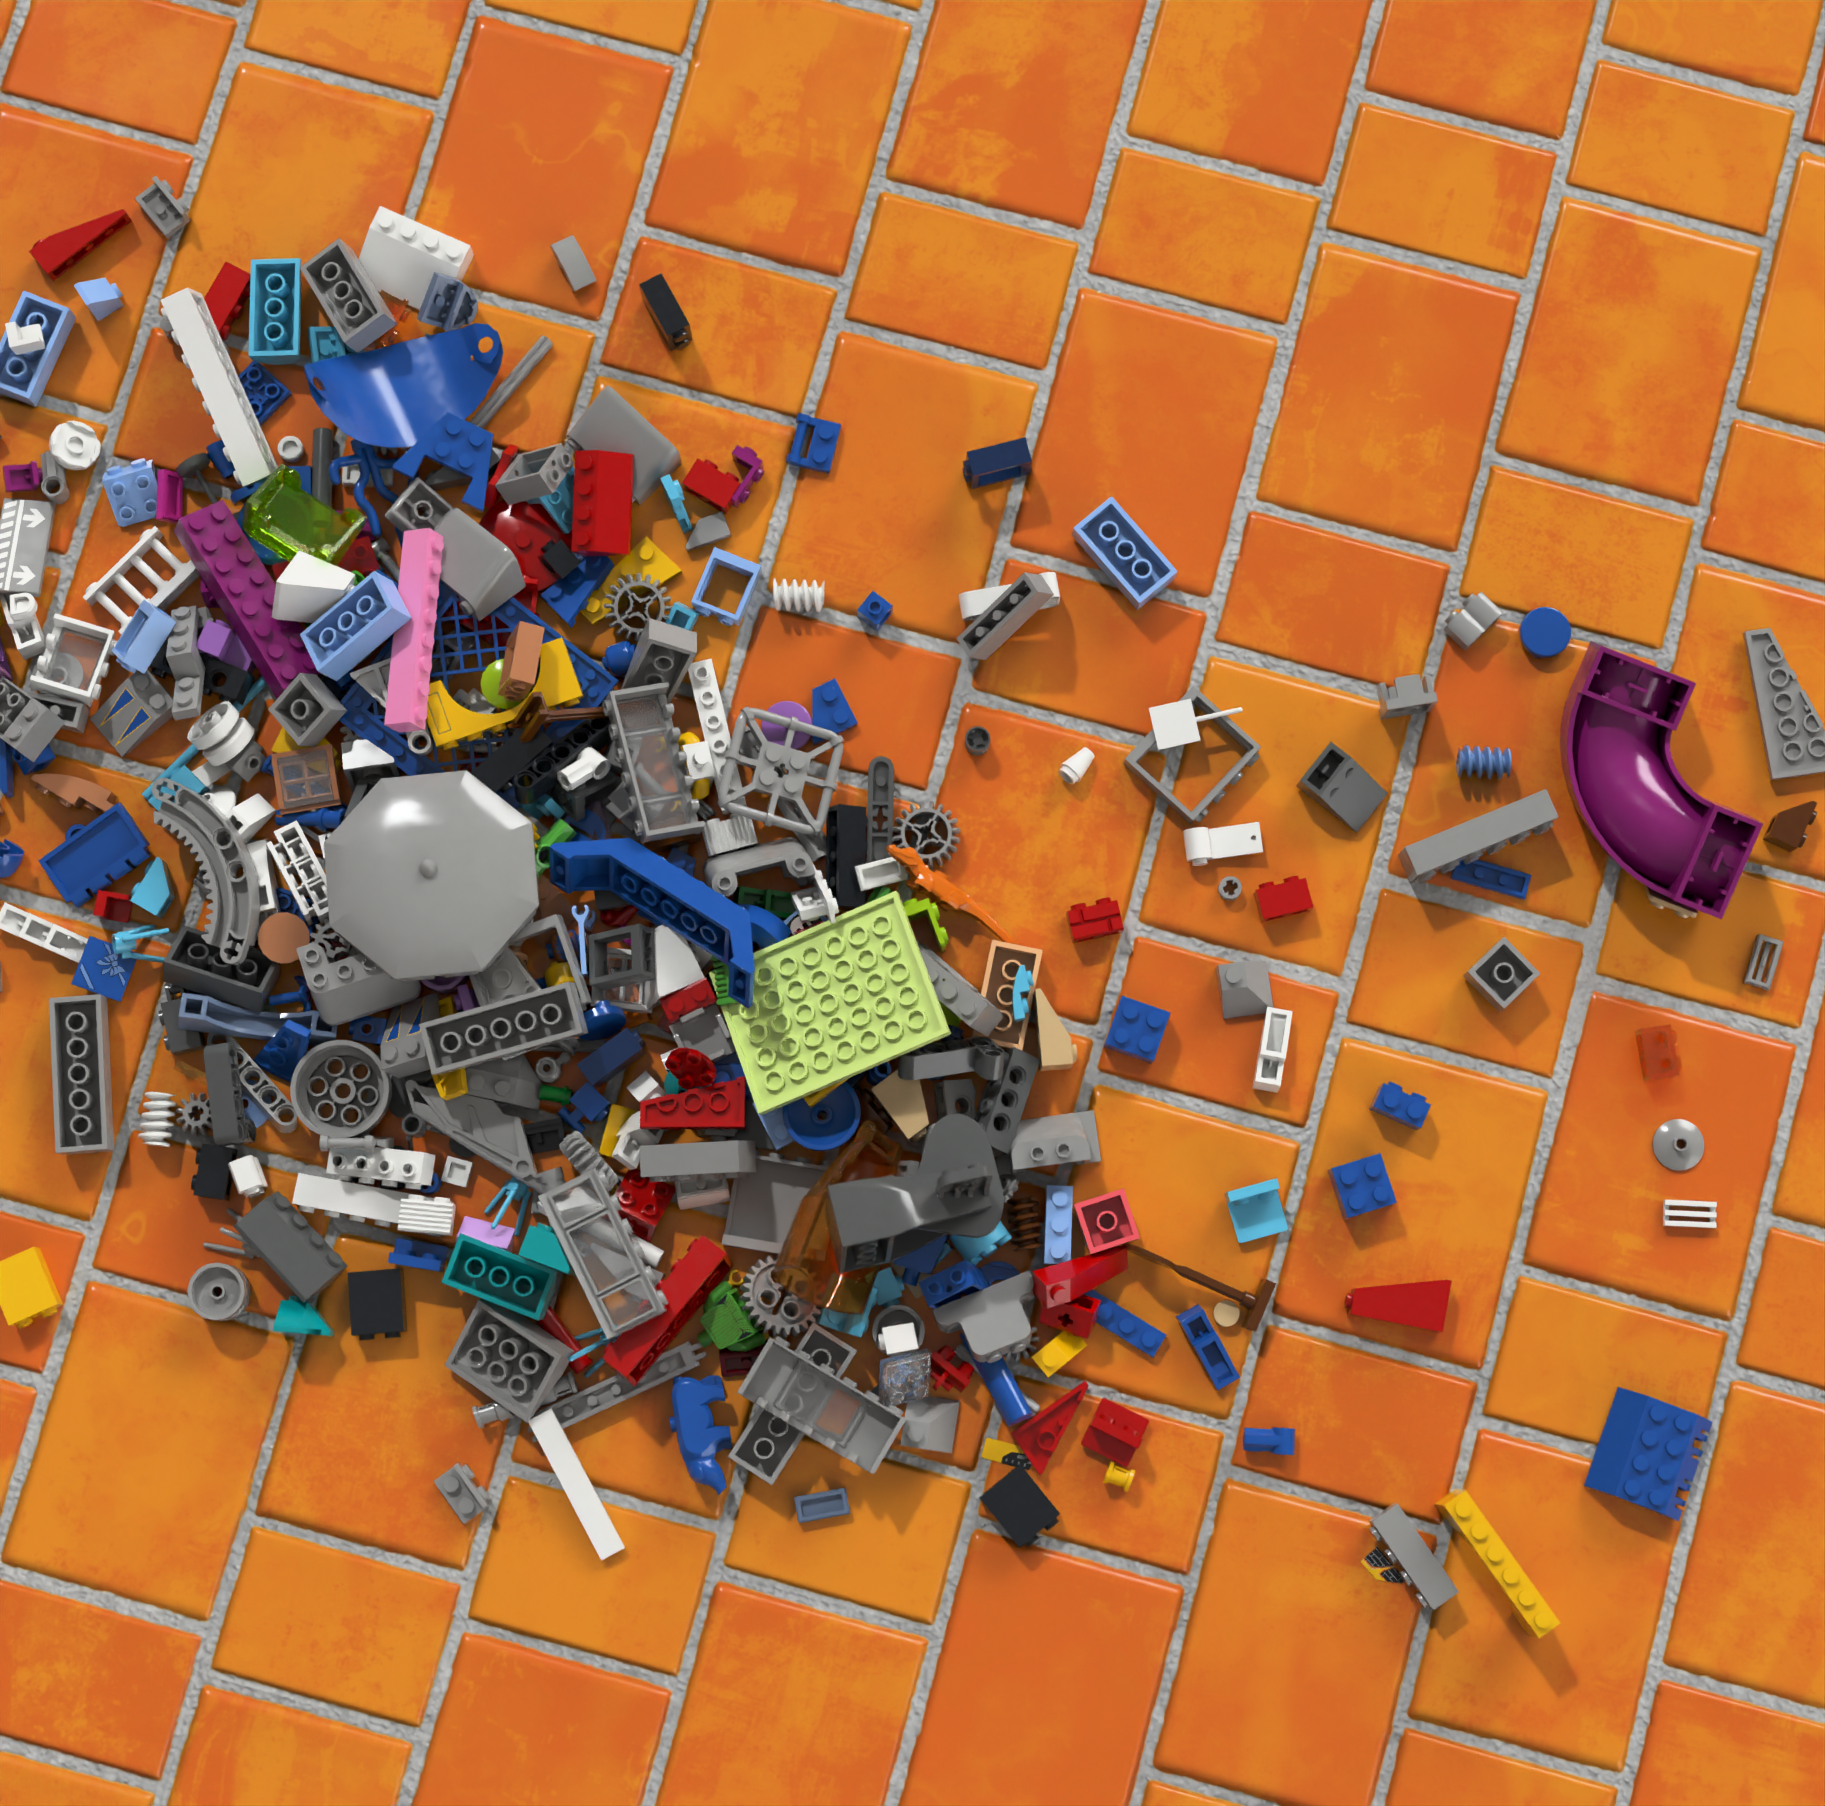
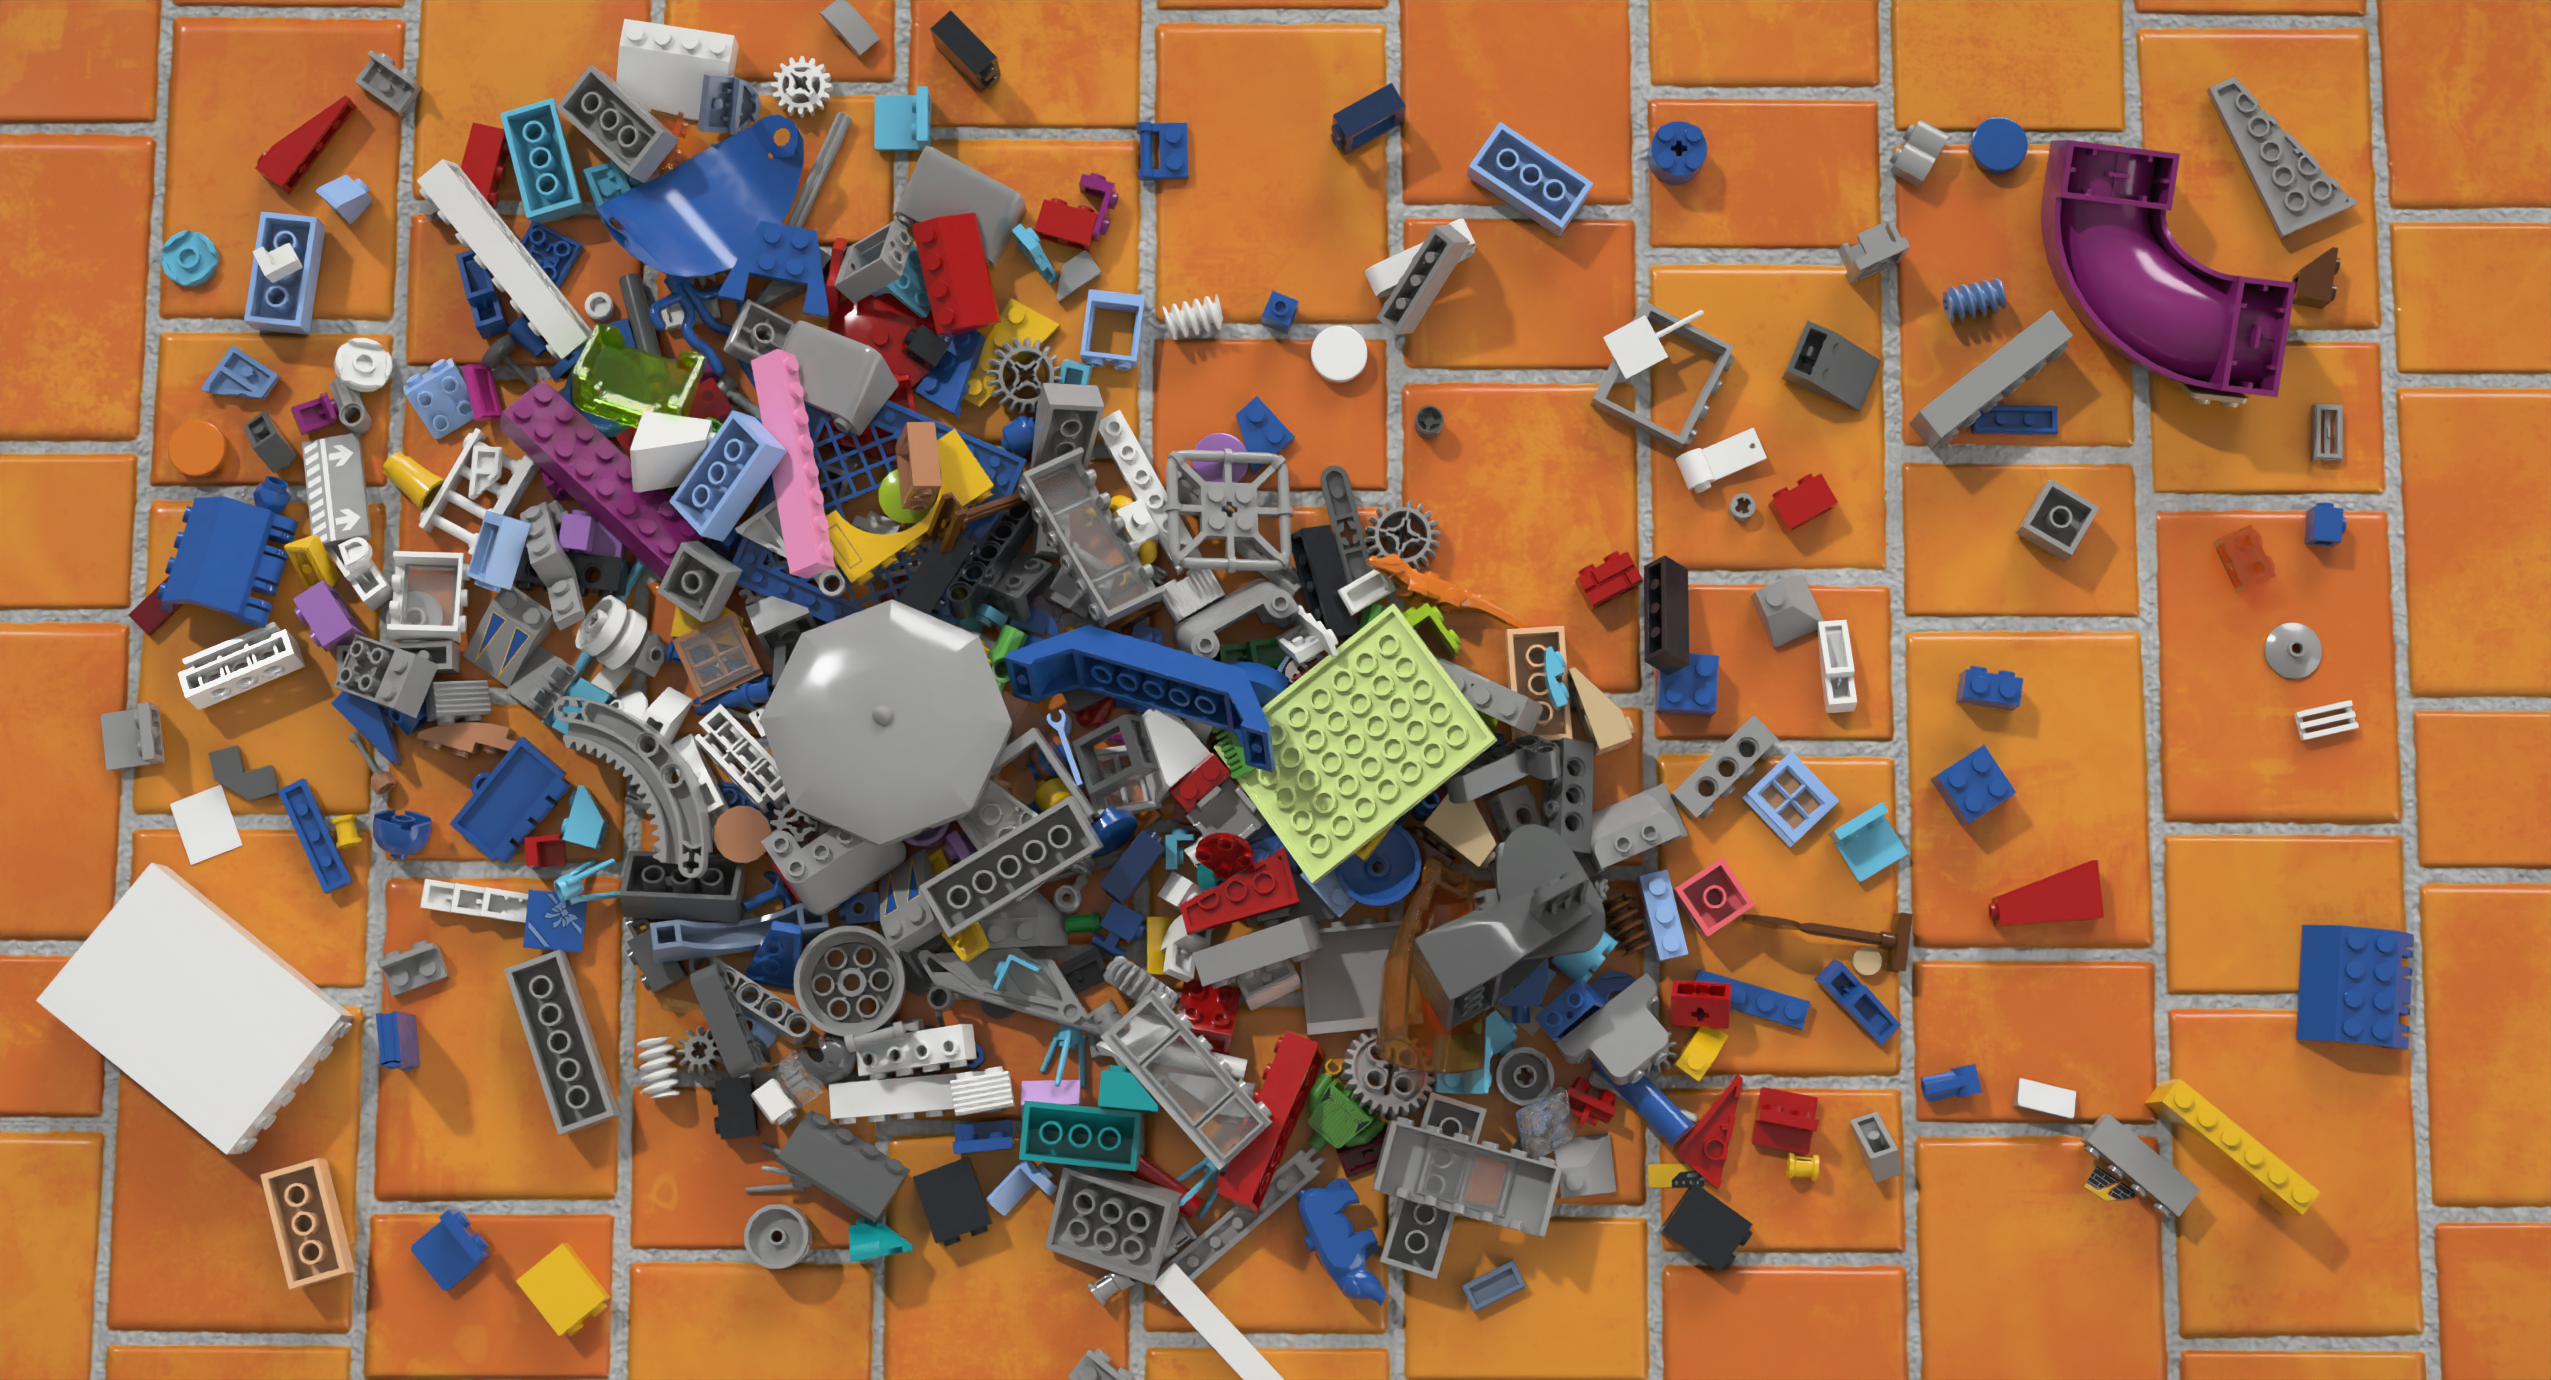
camera: 15 degrees left, 0 degrees up
(74, 757) = (457, 701): none -> light grey brick
(89, 555) = (412, 479): none -> yellow plant
(151, 759) = (542, 681): none -> light grey hinge
(153, 563) = (485, 469): none -> white tile
(193, 417) = (482, 296): none -> blue slope
(272, 1162) = (796, 1080): none -> clear brick
(307, 1152) = (832, 1061): none -> dark grey helmet
(437, 1304) = (1018, 1184): none -> light blue bracket
(457, 1171) = (998, 1035): white tile -> none
(474, 1114) = (1003, 968): none -> medium azure bracket
(524, 299) = (808, 78): none -> white gear
(588, 765) = (1020, 559): white piece -> none
(596, 358) = (903, 121): none -> medium azure bracket
(650, 1055) = (1174, 854): none -> medium azure bracket
(898, 1338) = (1529, 1084): white slope -> none
(916, 661) = (1339, 354): none -> white tile
(1075, 1277) = (1699, 965): red slope -> none
(1076, 766) = (1542, 420): white cone -> none
(1134, 965) = (1666, 615): none -> black brick
(1181, 1087) = (1752, 733): none -> light grey brick
(1188, 1477) = (1876, 1147): none -> light grey slope
(1199, 1154) = (1790, 799): none -> light blue piece
(1273, 559) = (1683, 138): none -> blue brick
(1348, 1476) = (2045, 1099): none -> slope
(1737, 1042) = (2324, 525): none -> blue brick

